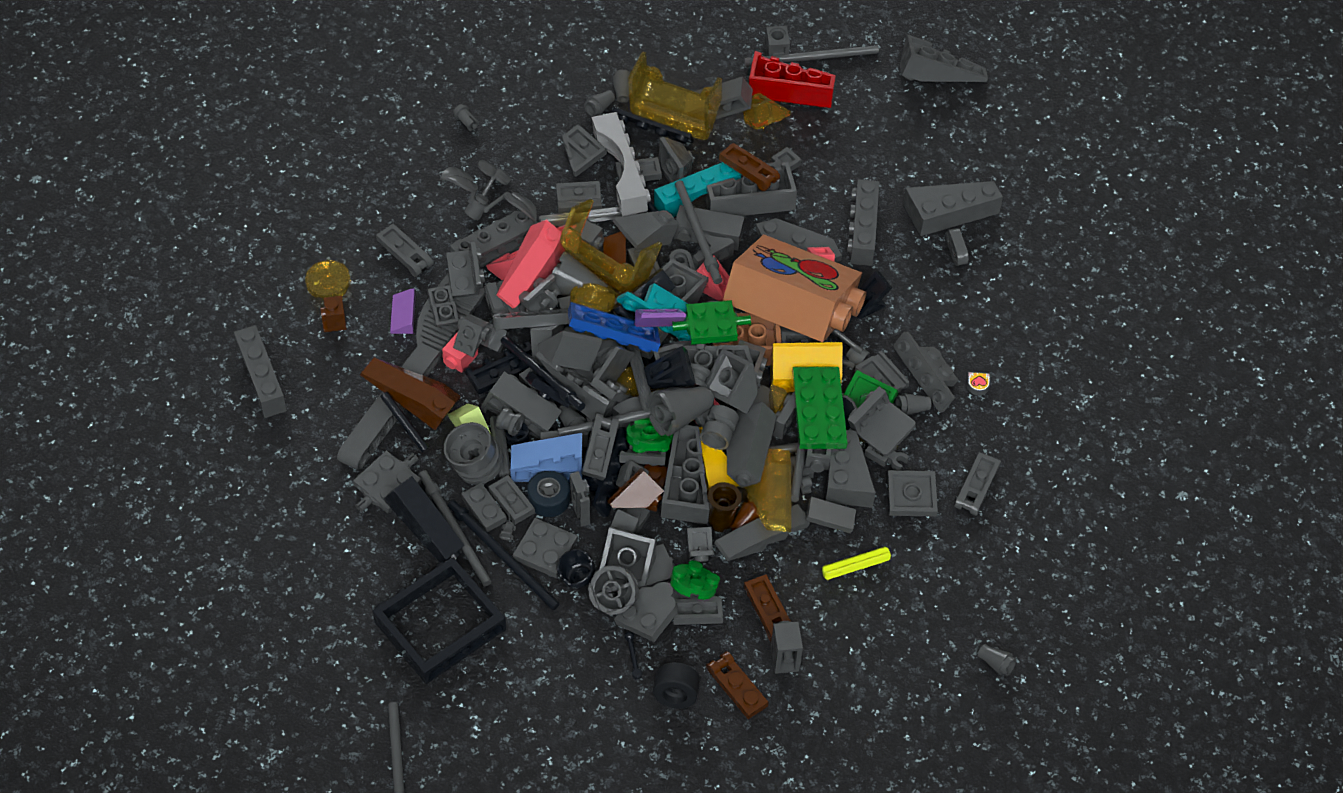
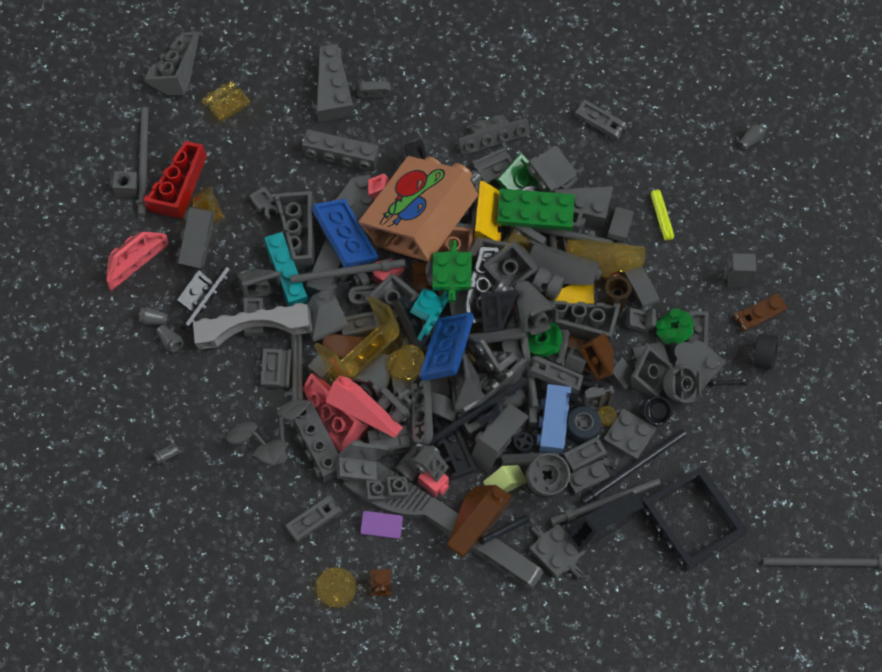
camera: 85 degrees left, 10 degrees up
(260, 371) = (448, 643): dark grey arch -> none
(510, 421) = (521, 442): dark grey wheel -> none
(567, 520) = (608, 415): none -> clear yellow tile
(582, 149) = (221, 360): dark grey wing -> none
(658, 317) = (443, 308): medium lavender slope -> none
(672, 104) = (203, 265): clear yellow windscreen -> none
(686, 55) = (133, 255): none -> coral wedge
(743, 227) = (344, 233): none -> blue plate
(749, 166) = (283, 221): reddish brown plate -> none
(765, 602) = (697, 280): reddish brown plate -> none
(901, 118) = (228, 105): none -> clear yellow plate
(912, 403) = (523, 147): dark grey cone -> none
(912, 493) = (605, 165): dark grey plate -> none
(978, 383) = (506, 102): tile -> none

